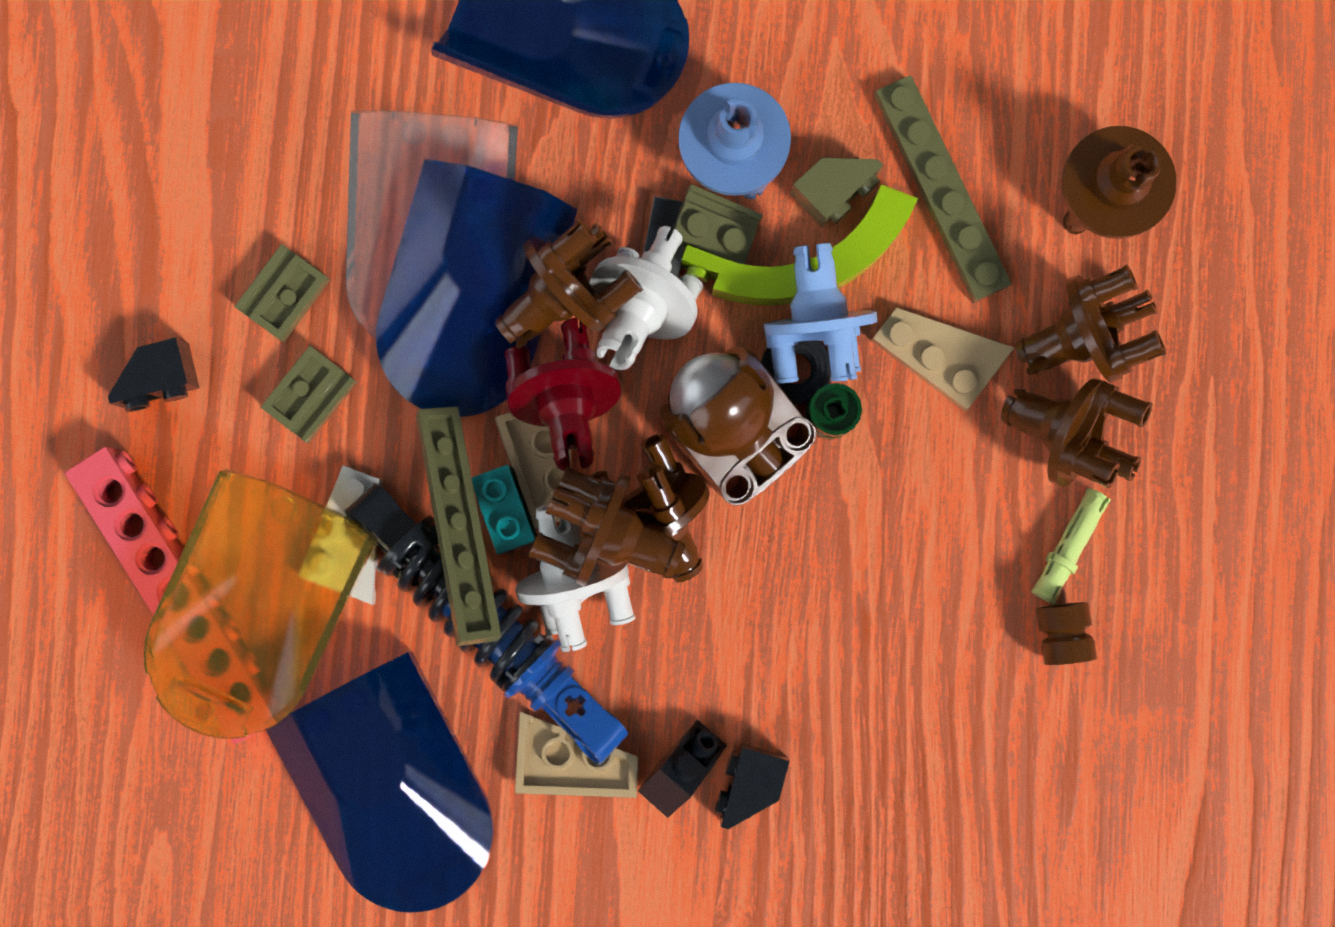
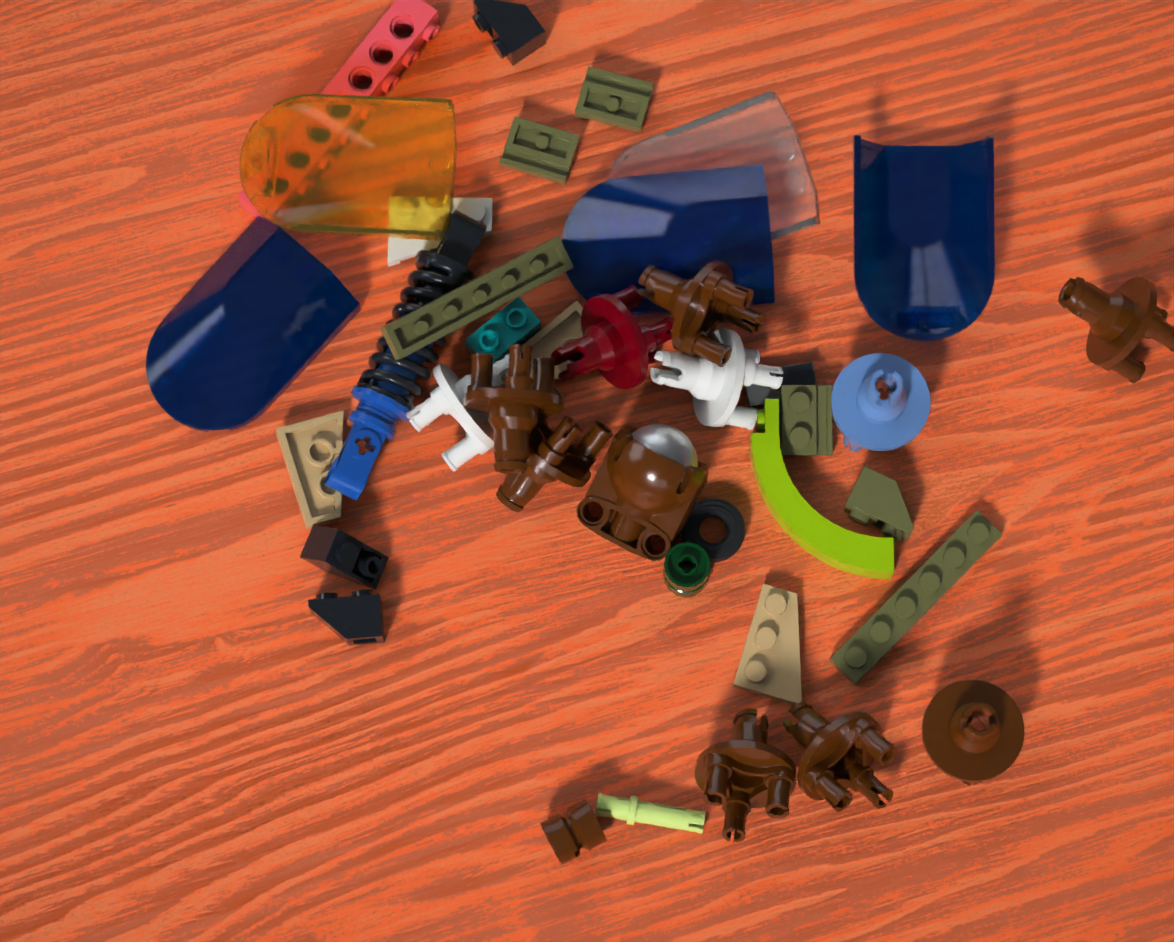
camera: 70 degrees right, 10 degrees down
(817, 314) = (758, 525): light blue piece -> none

